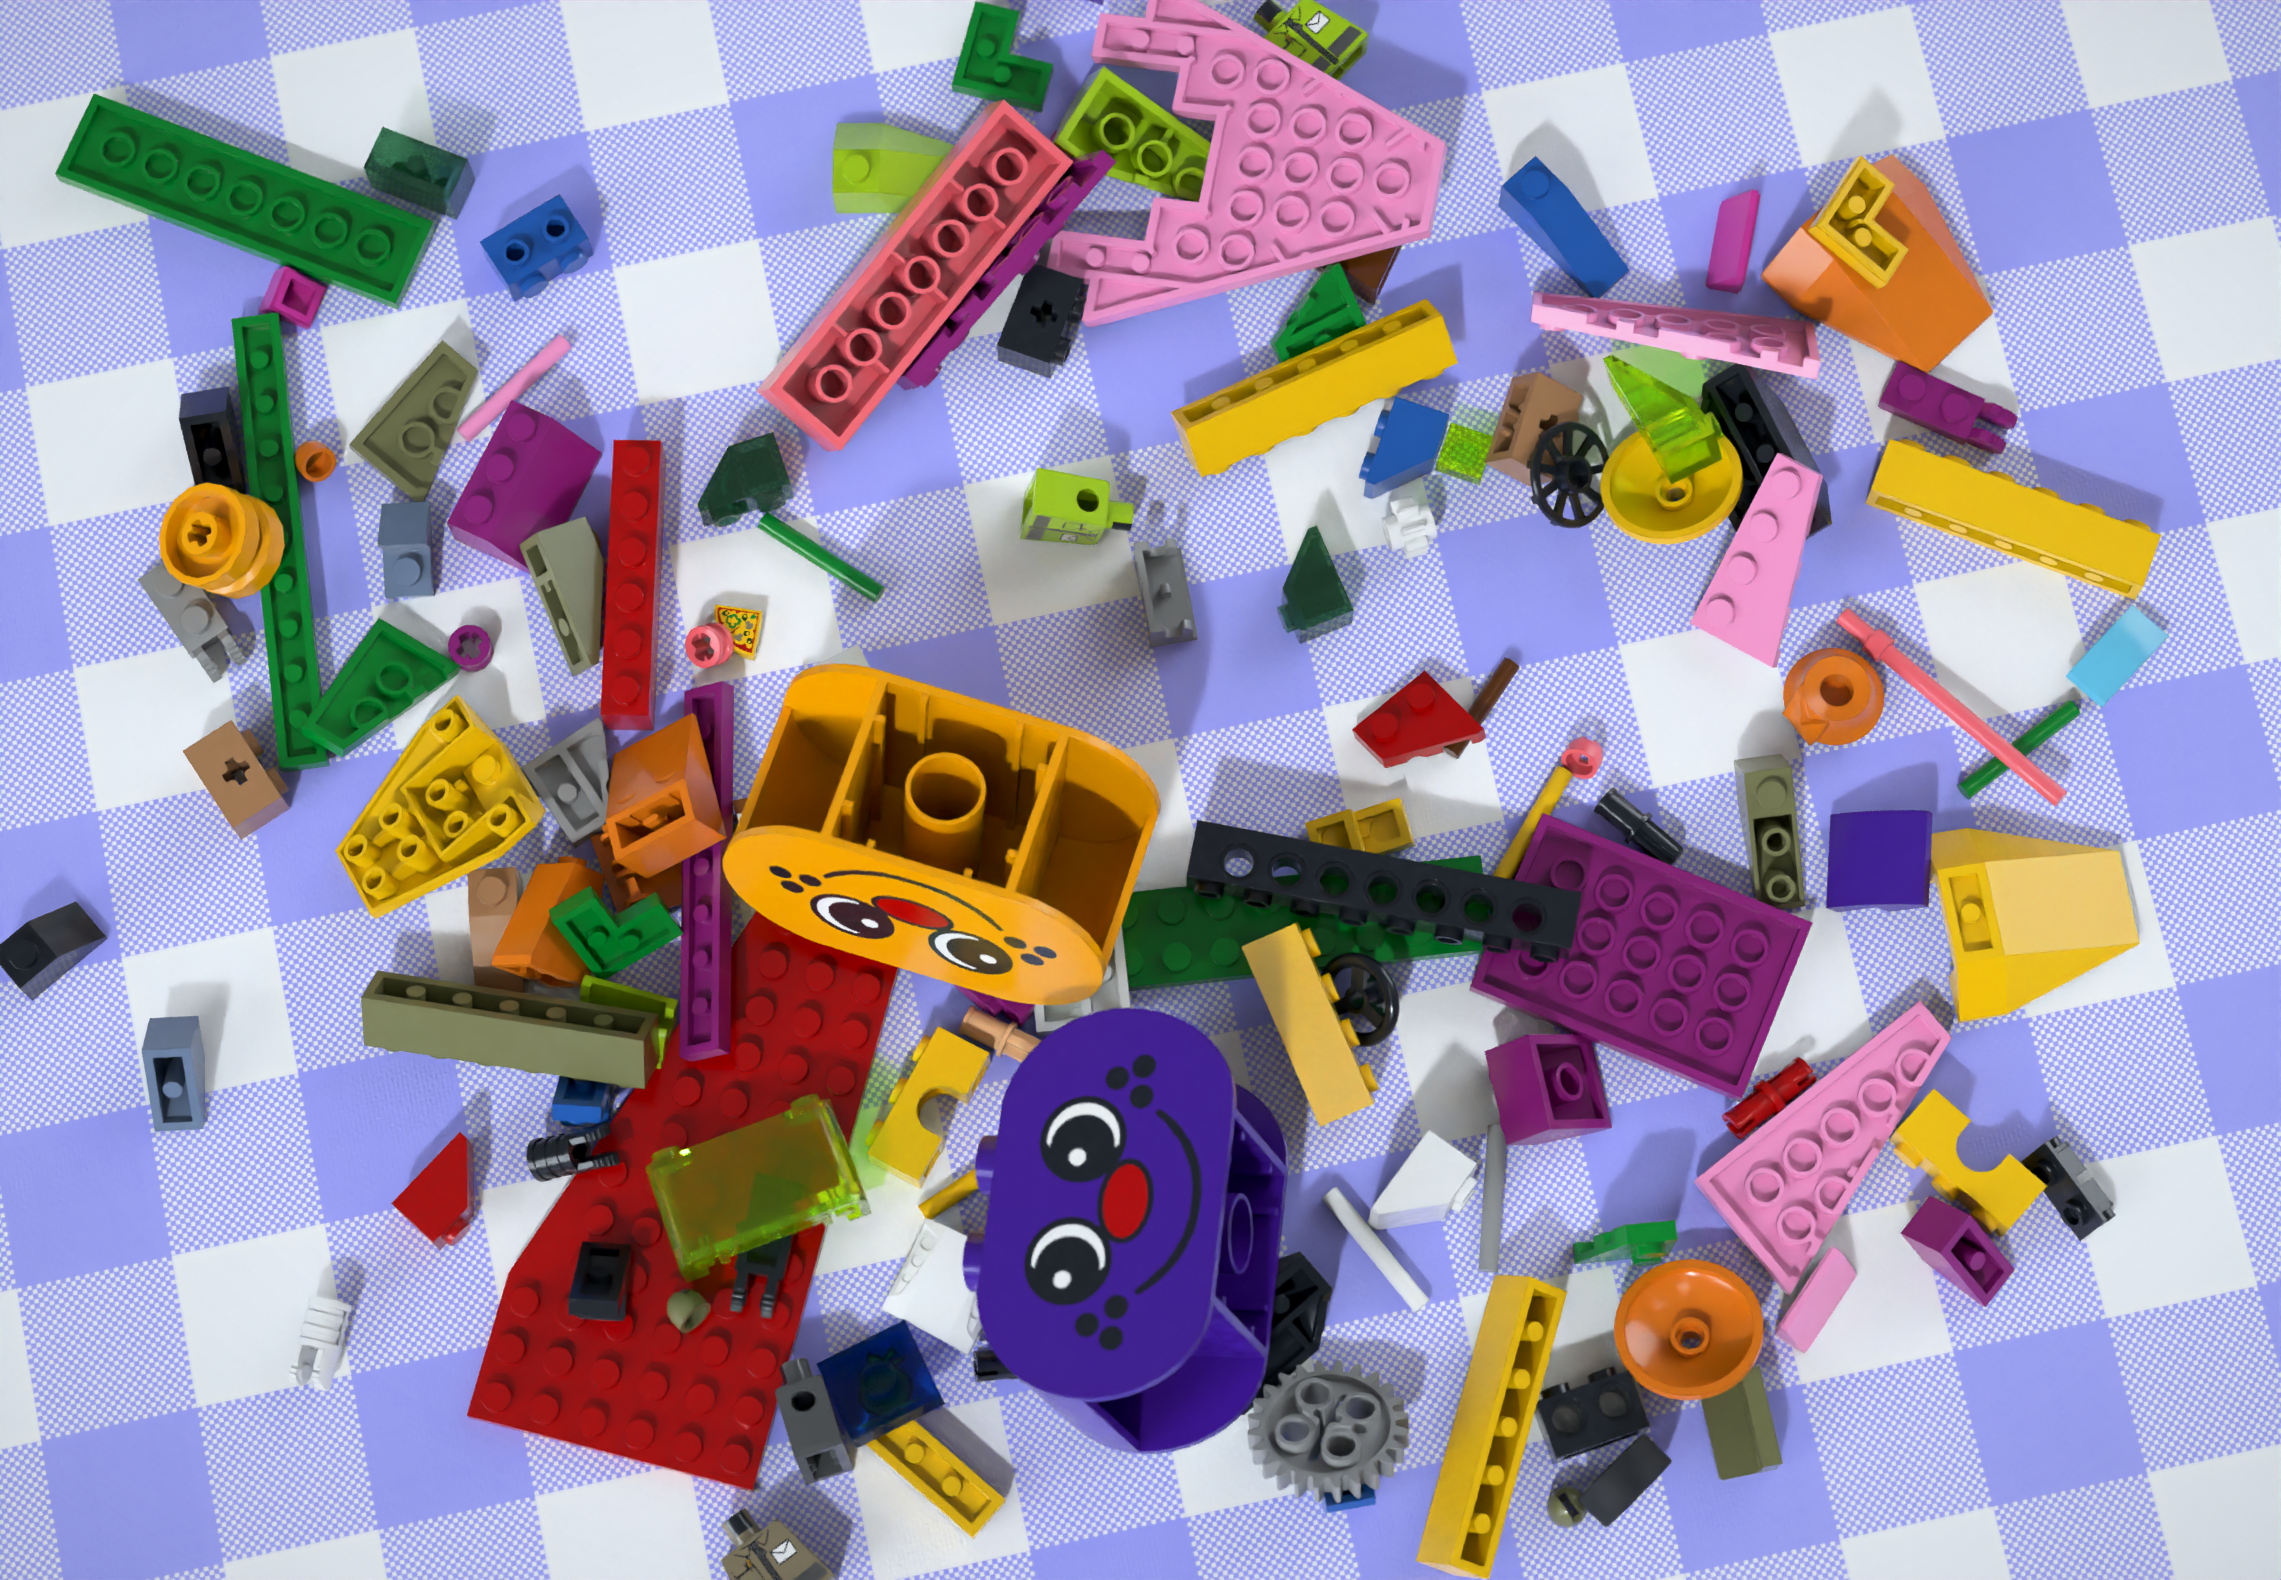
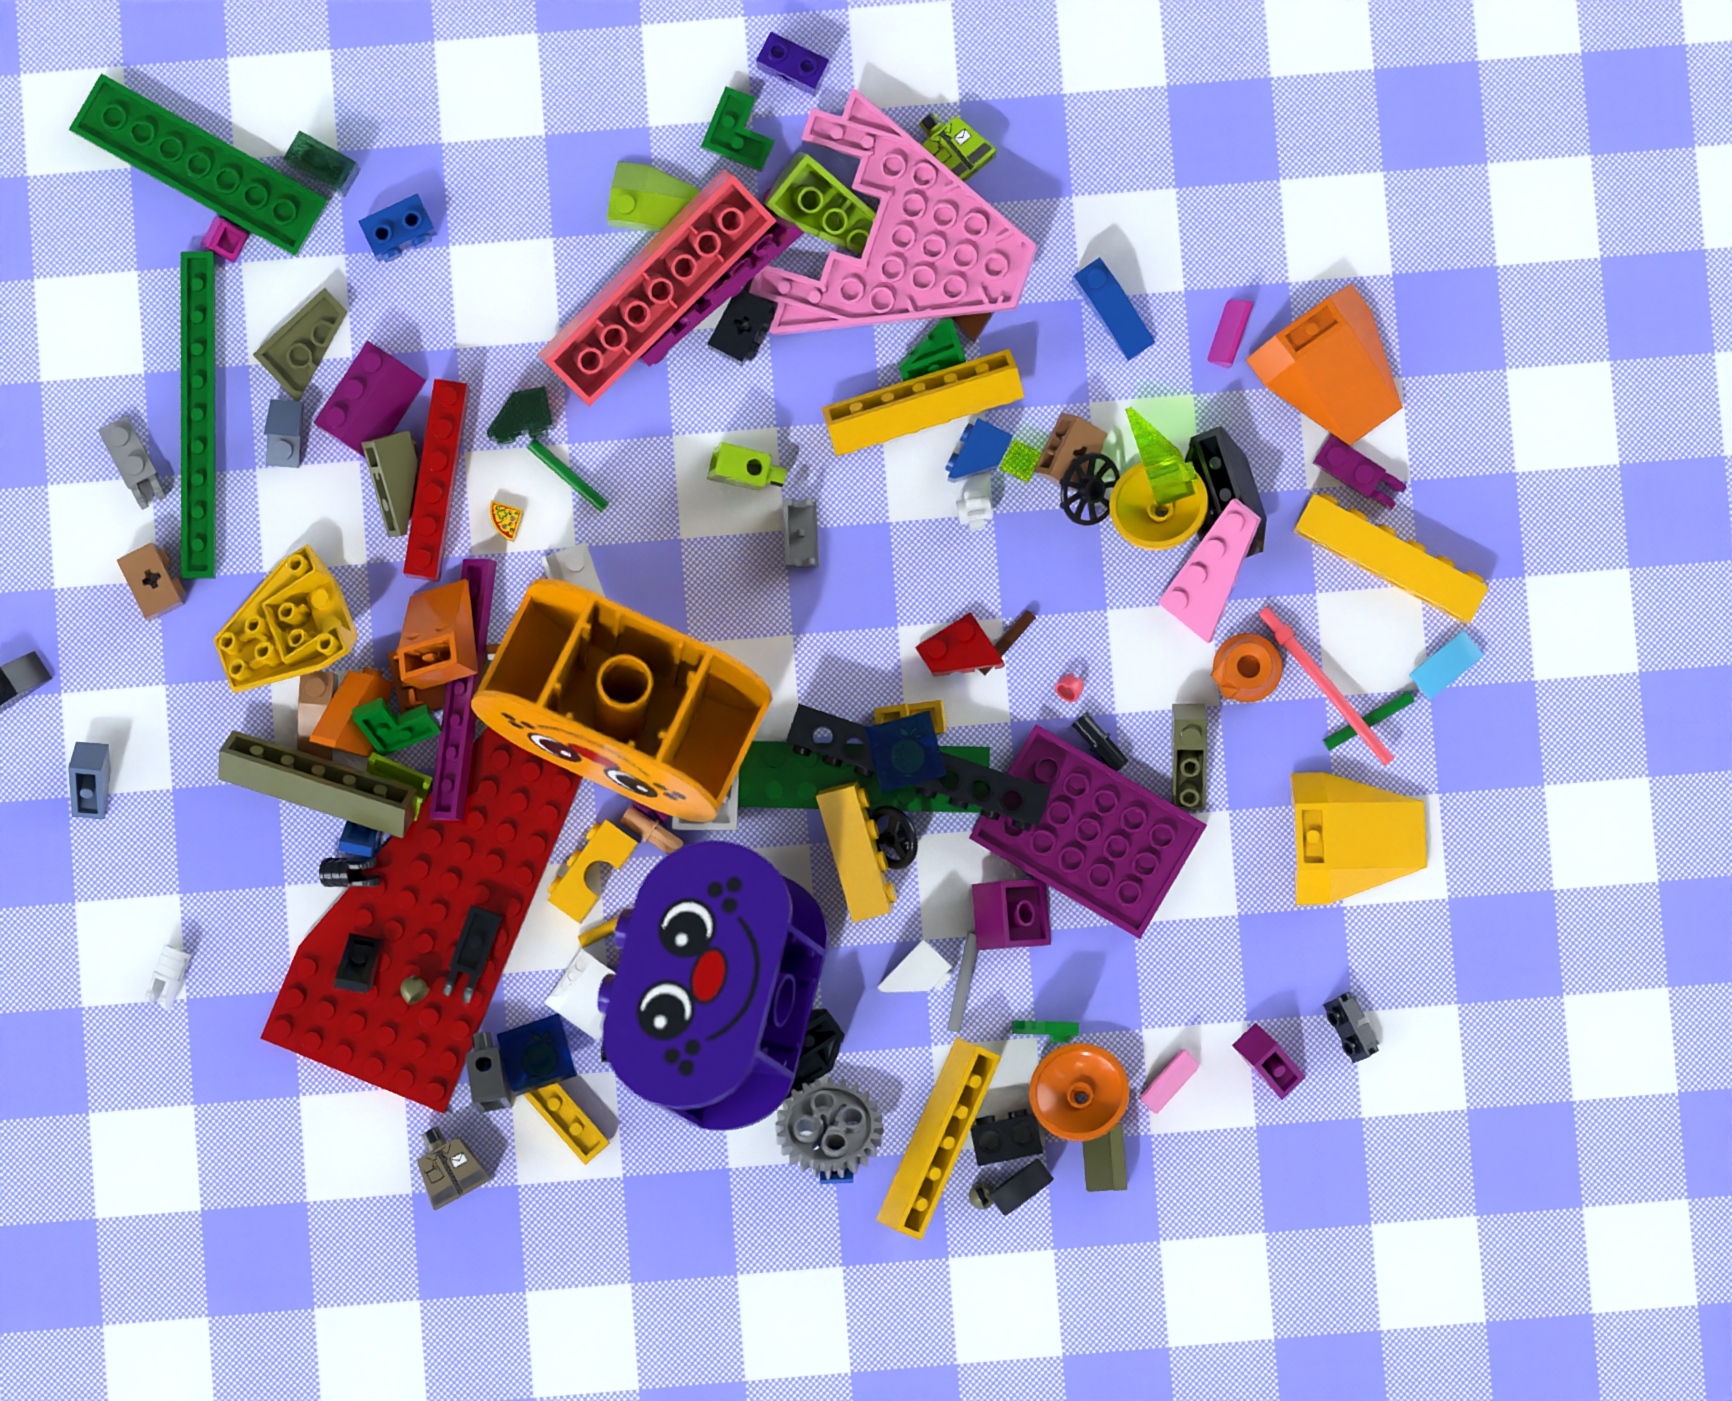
camera: 10 degrees right, 10 degrees up
(212, 438) = (158, 339): black slope -> none
(221, 540) = (157, 414): light orange wheel -> none
(314, 461) = (227, 361): orange hinge -> none
(376, 687) = (252, 530): green wing -> none
(442, 1195) = (260, 888): red slope -> none
(485, 647) = (310, 507): magenta bush -> none
(514, 388) = (371, 325): bright pink bar -> none
(575, 781) = (381, 613): light grey wing -> none
(720, 642) = (491, 530): coral bush -> none
(755, 1185) = (470, 913): clear neon green windscreen -> none
(1313, 593) = (901, 547): clear green slope -> none
(1363, 866) = (905, 751): none -> clear blue tile
(1375, 1249) = (880, 1006): white bar -> none
(1544, 804) = (1017, 743): yellow bar -> none
(1698, 334) = (1213, 405): bright pink wing -> none
(1769, 1097) = (1159, 940): red pin -> none
(1806, 1162) = (1176, 988): bright pink wing -> none
(1849, 226) = (1307, 342): yellow brick -> none
(1879, 860) = (1259, 788): dark purple slope -> none
(1993, 1196) = (1262, 983): yellow arch -> none

